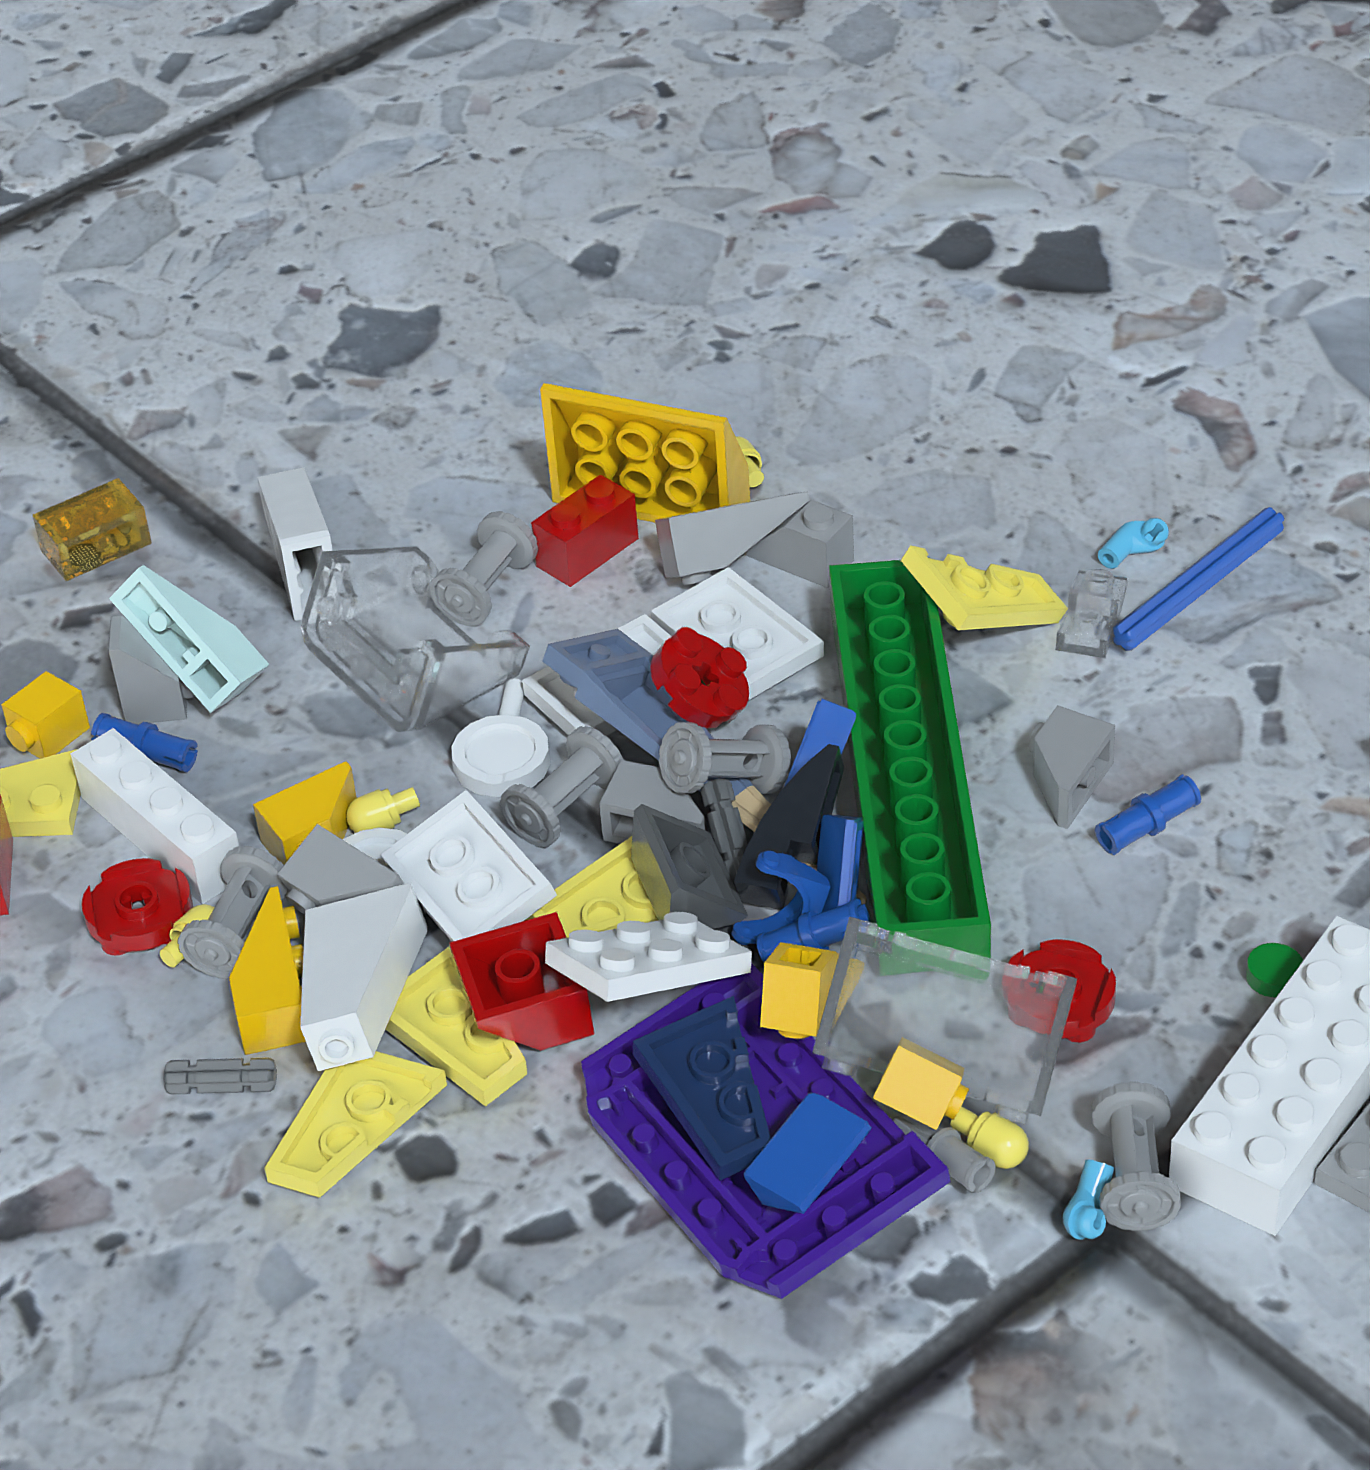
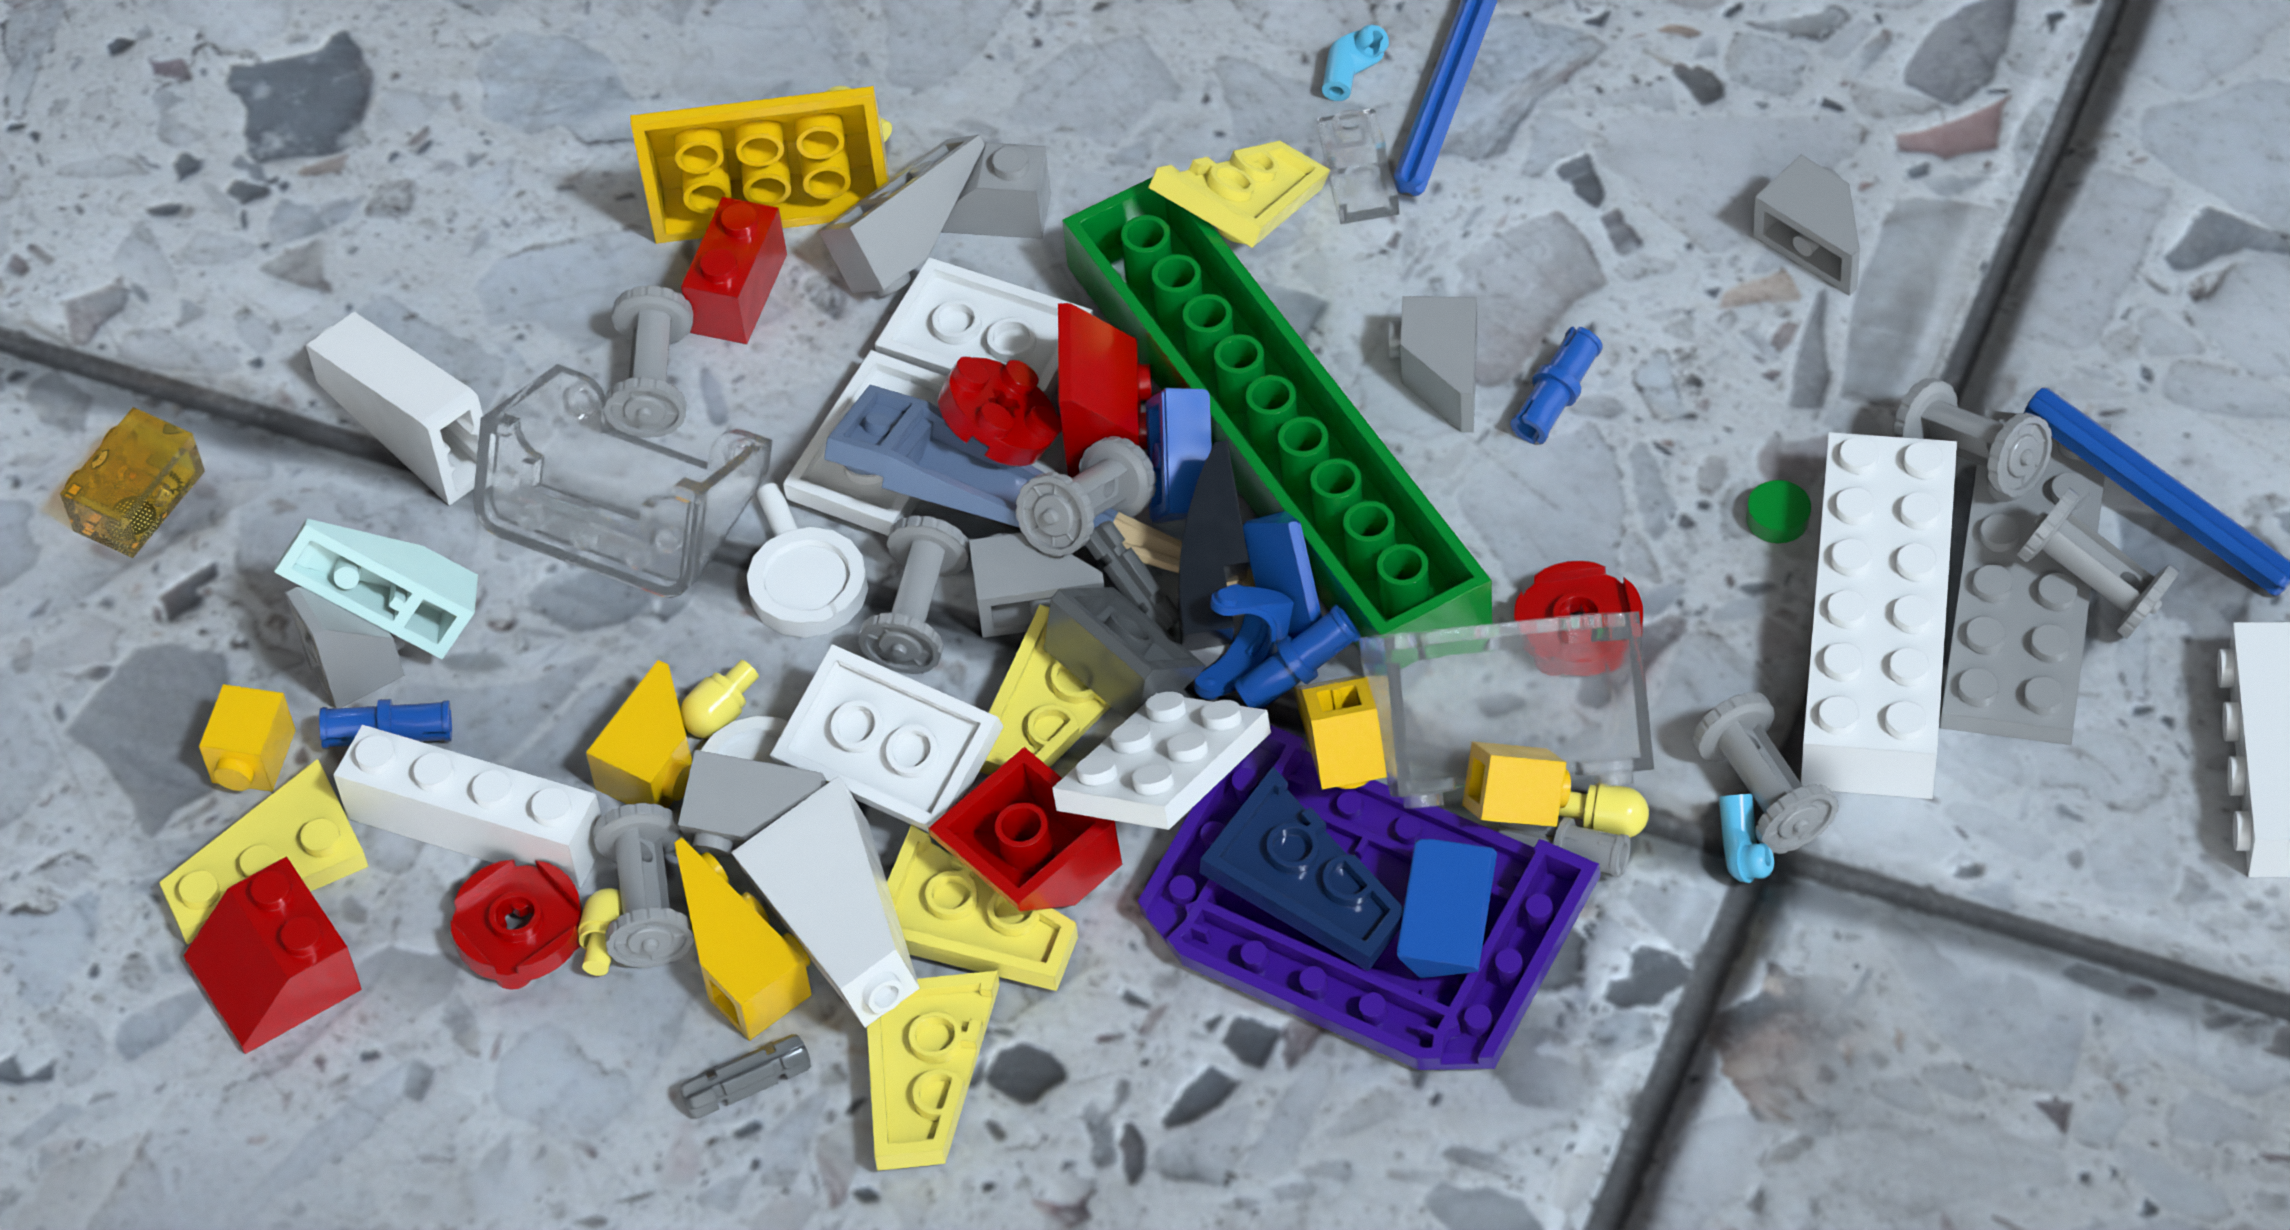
camera: 25 degrees left, 10 degrees up
(784, 683) = (1098, 384): none -> red slope

